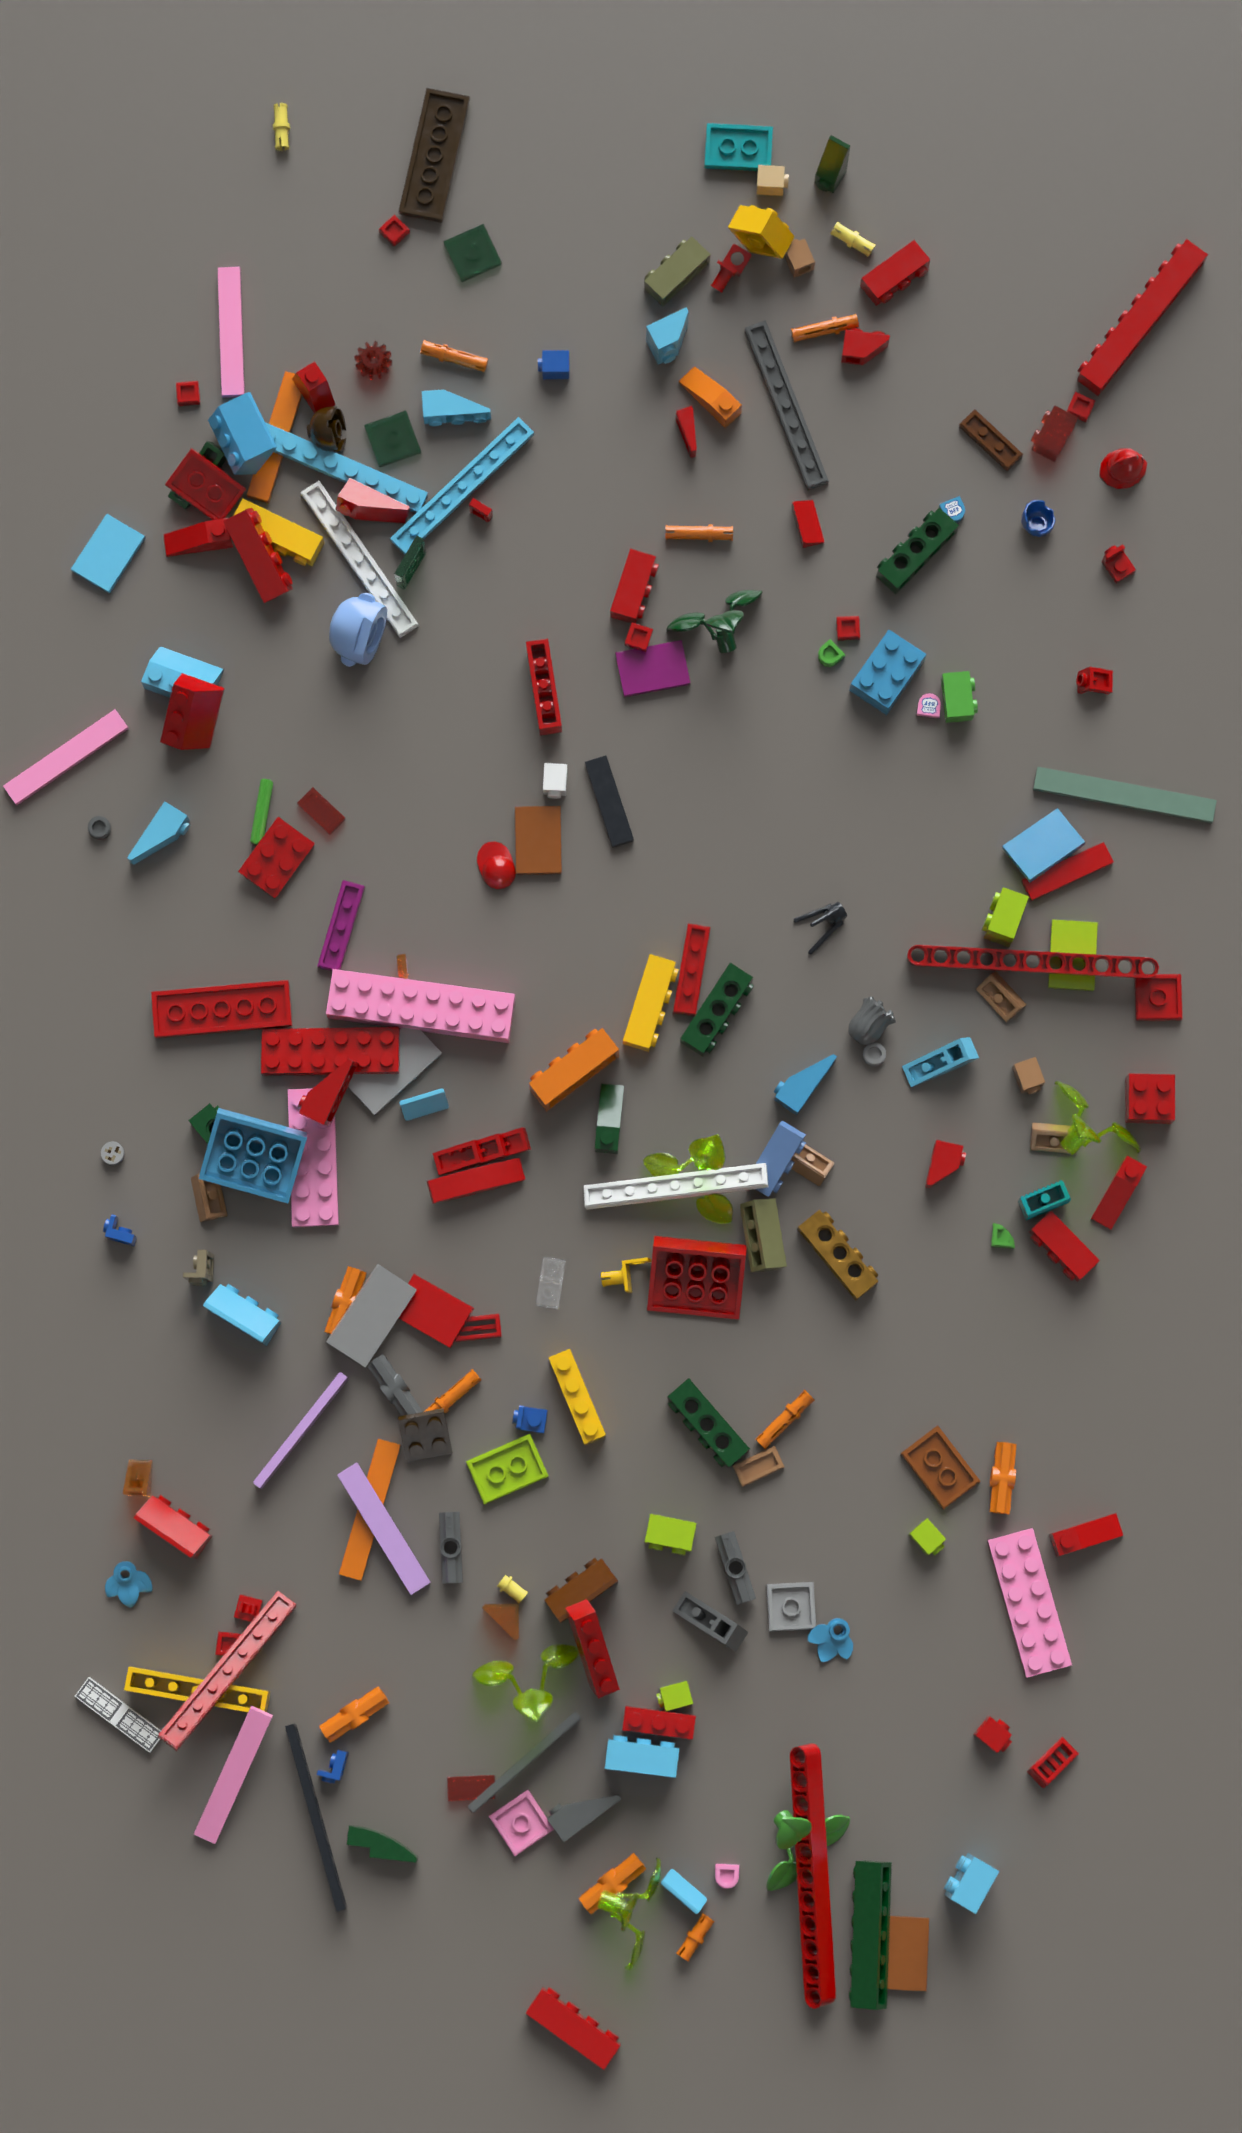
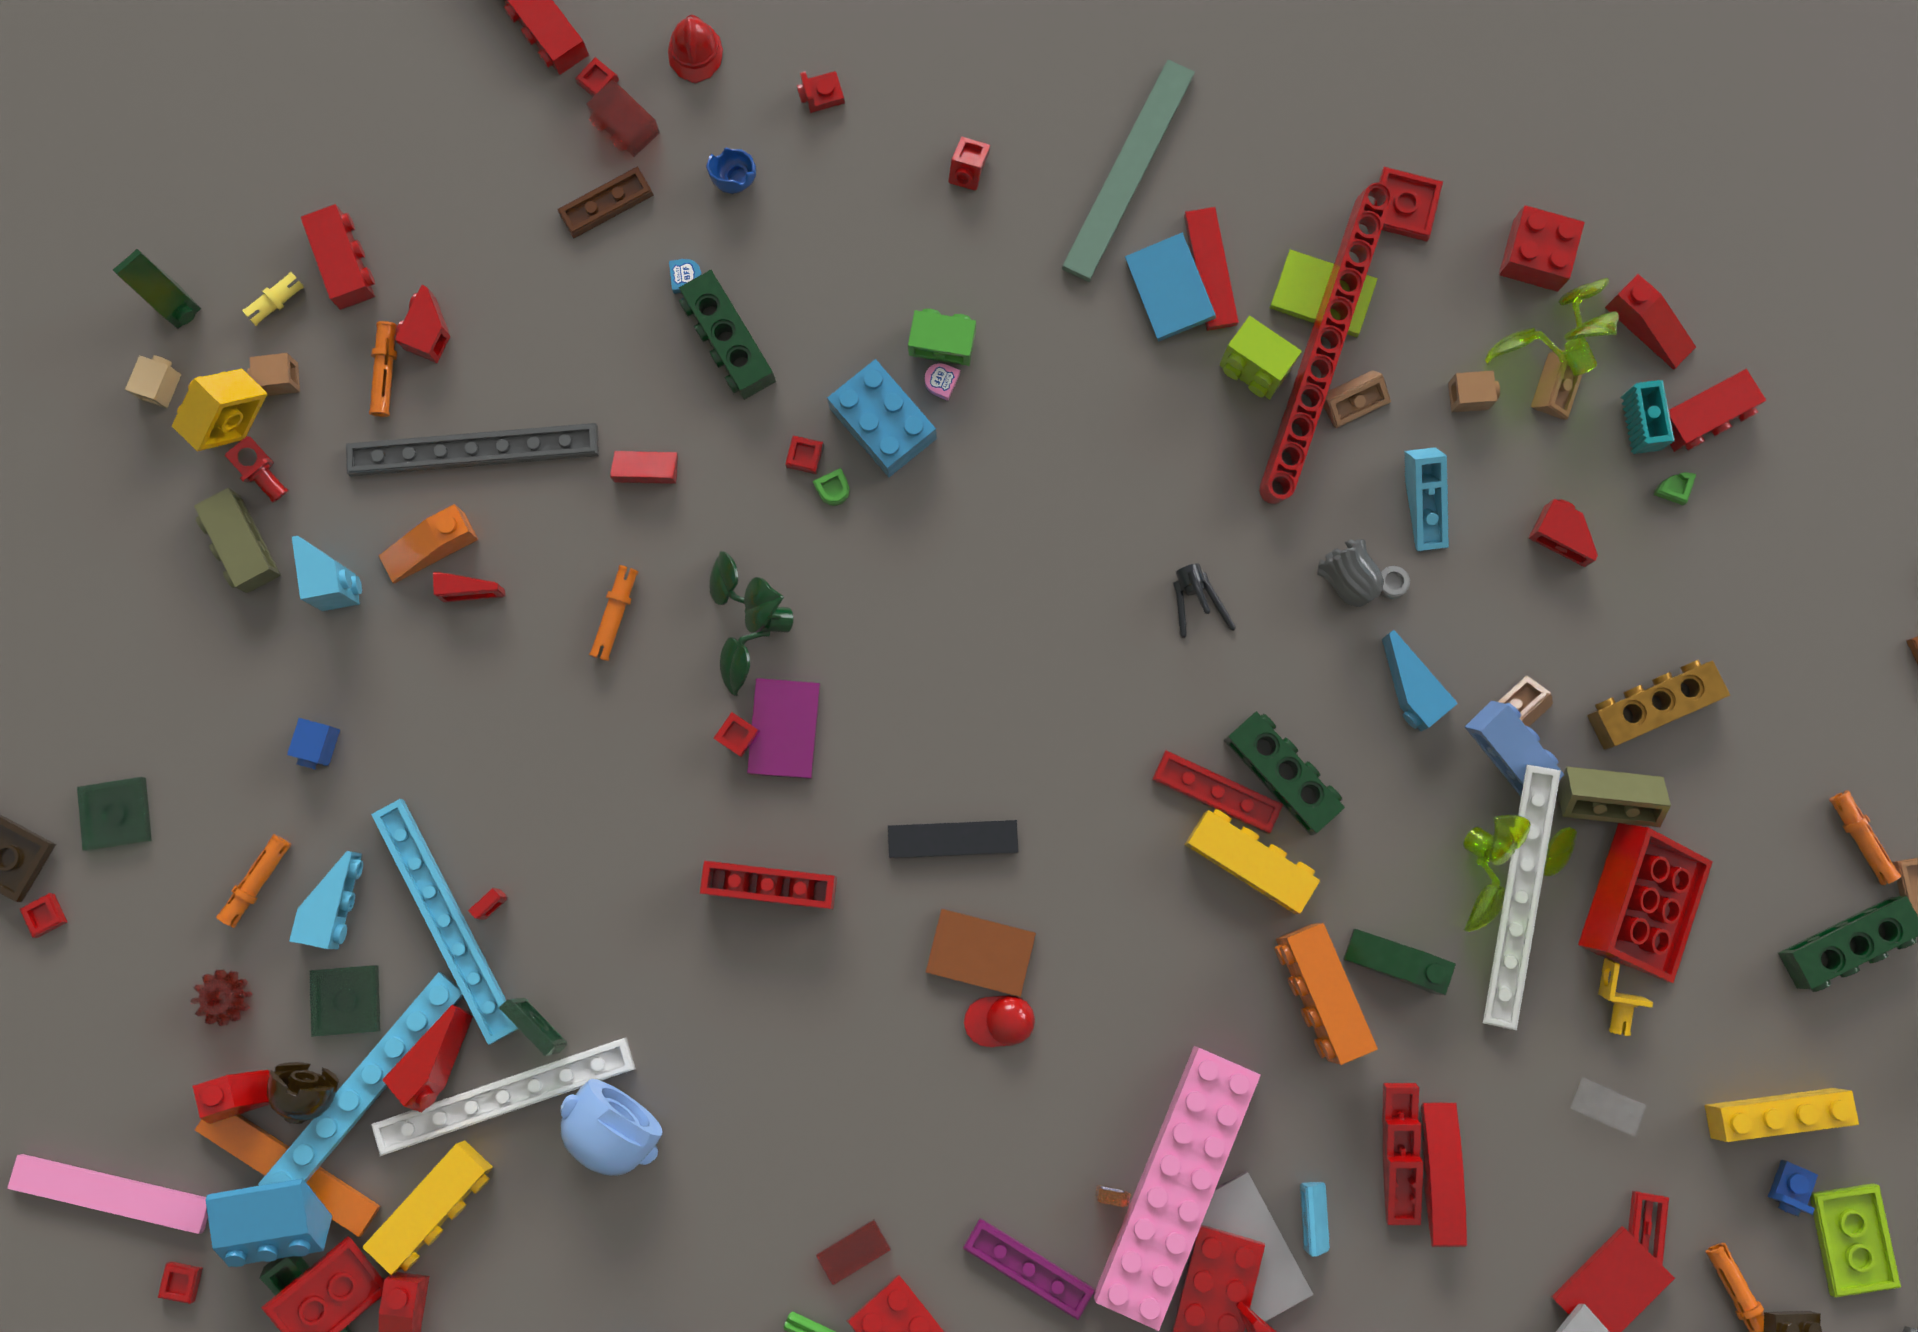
camera: 75 degrees left, 0 degrees up
(258, 554) = (453, 1247): red brick -> none
(555, 780) = (904, 906): white brick -> none
(634, 586) = (662, 721): red brick -> none
(738, 146) = (90, 412): teal plate -> none

